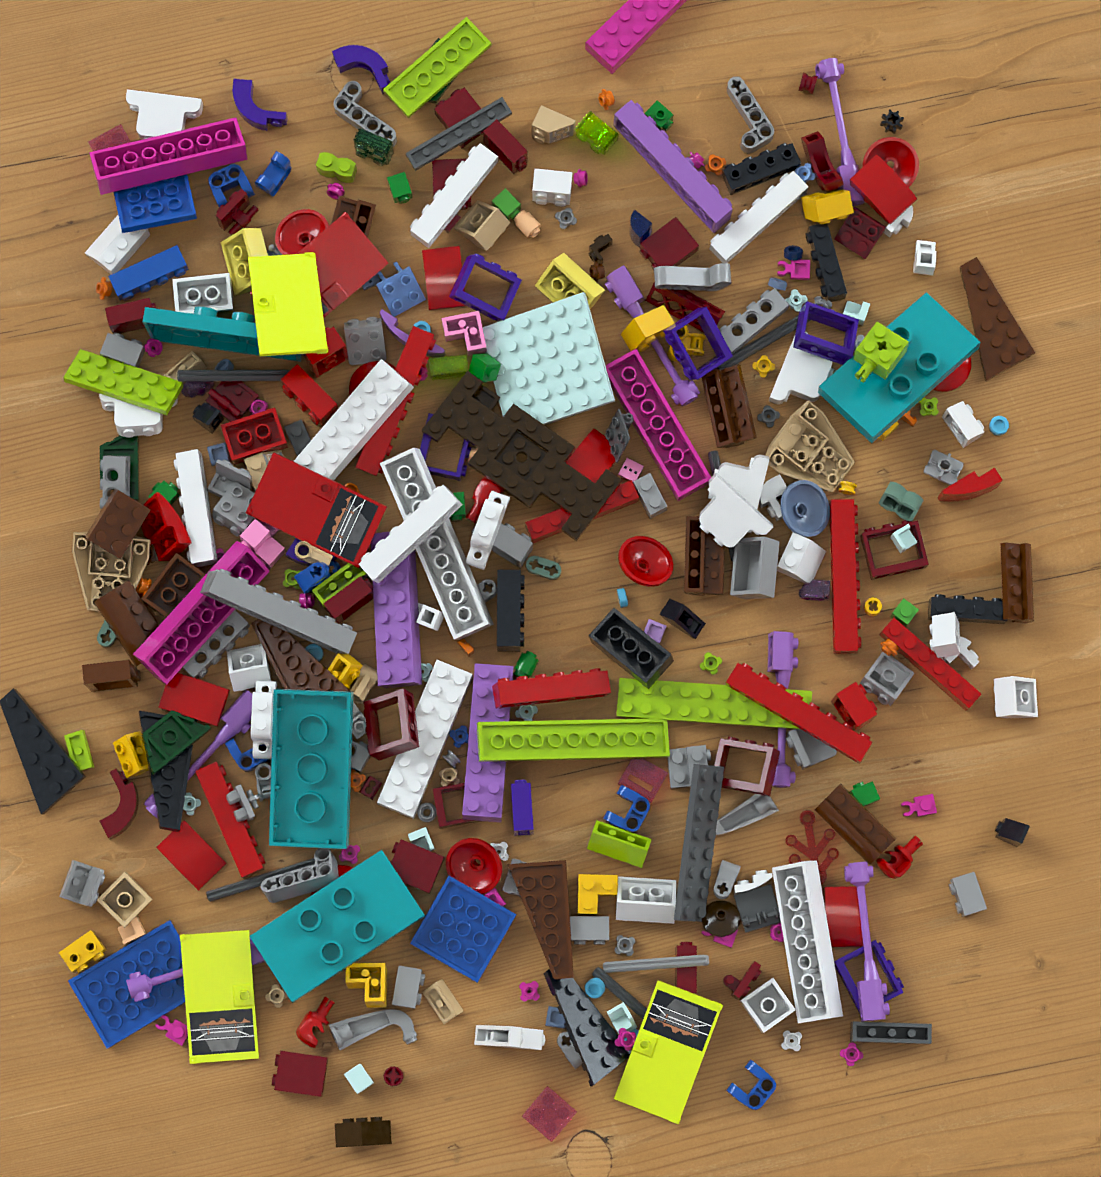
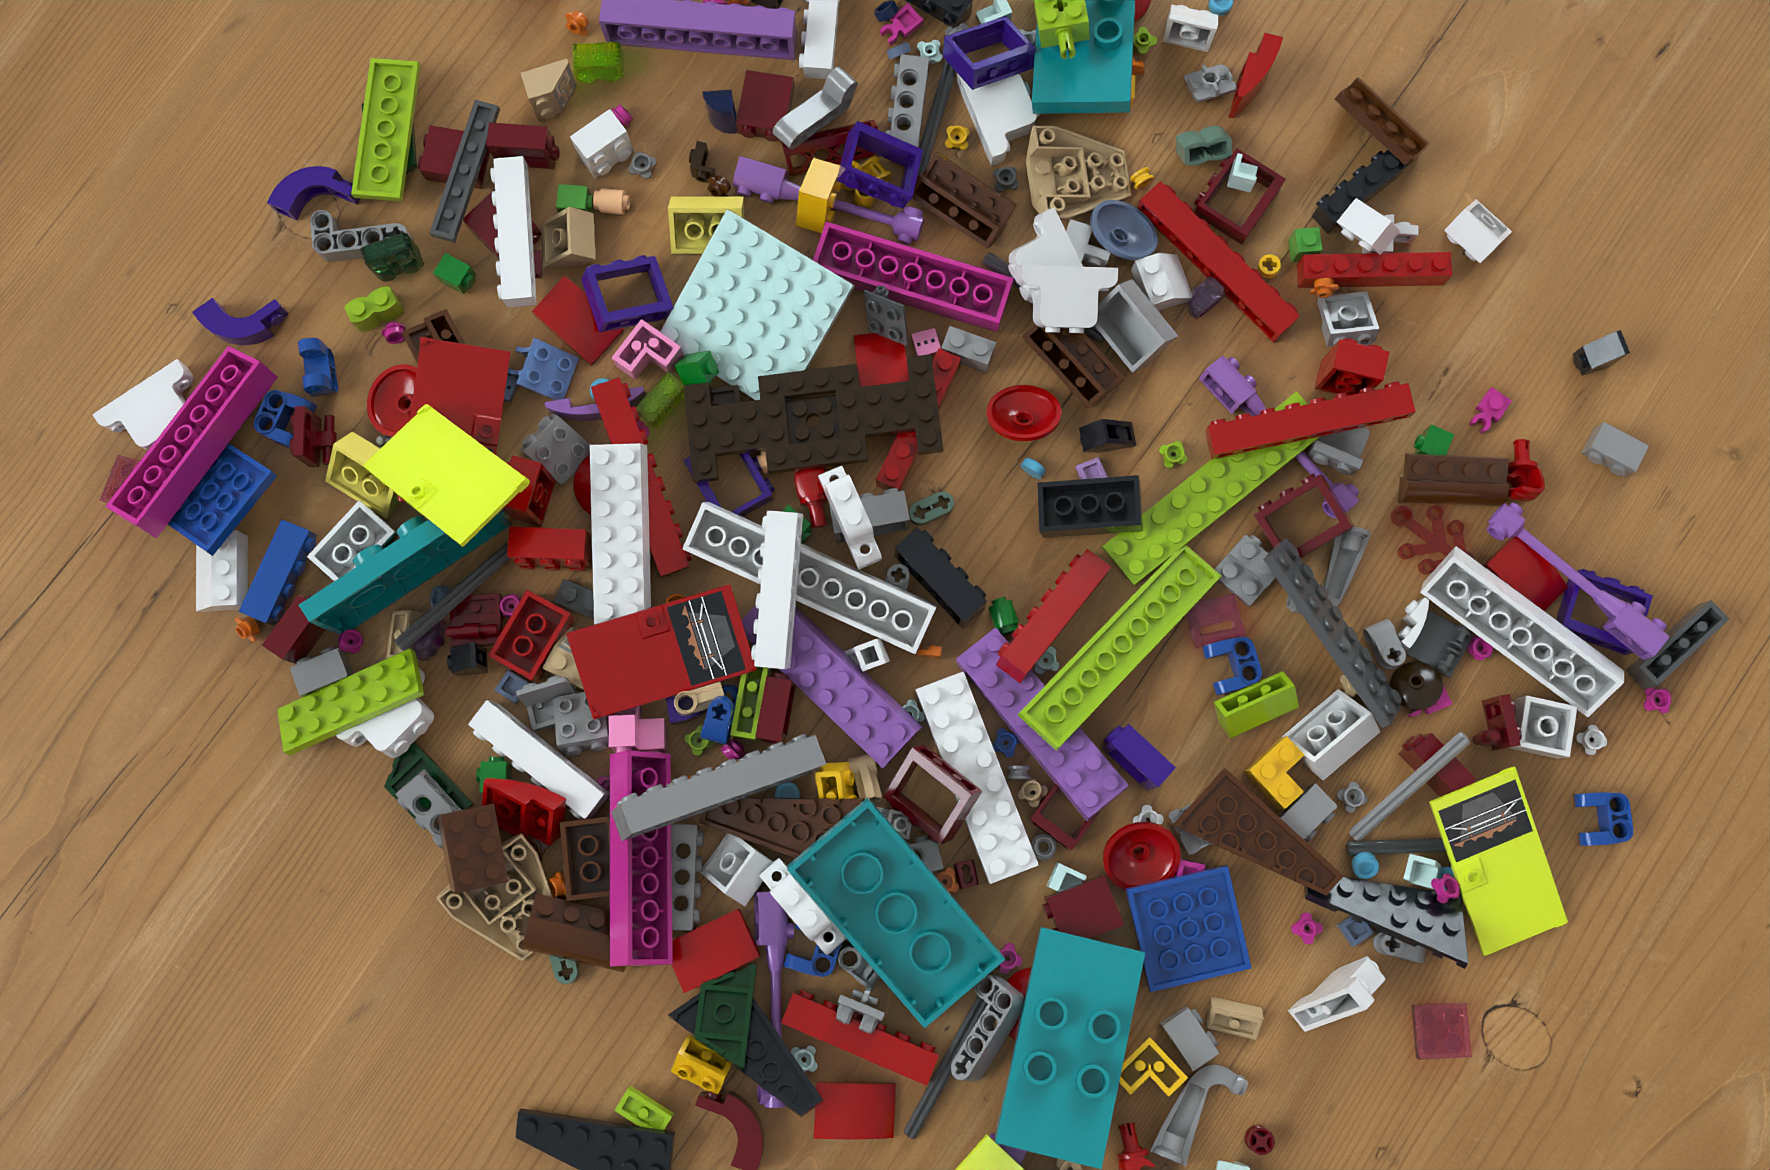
camera: 40 degrees left, 0 degrees up
(110, 675) = (606, 1008): reddish brown window -> none

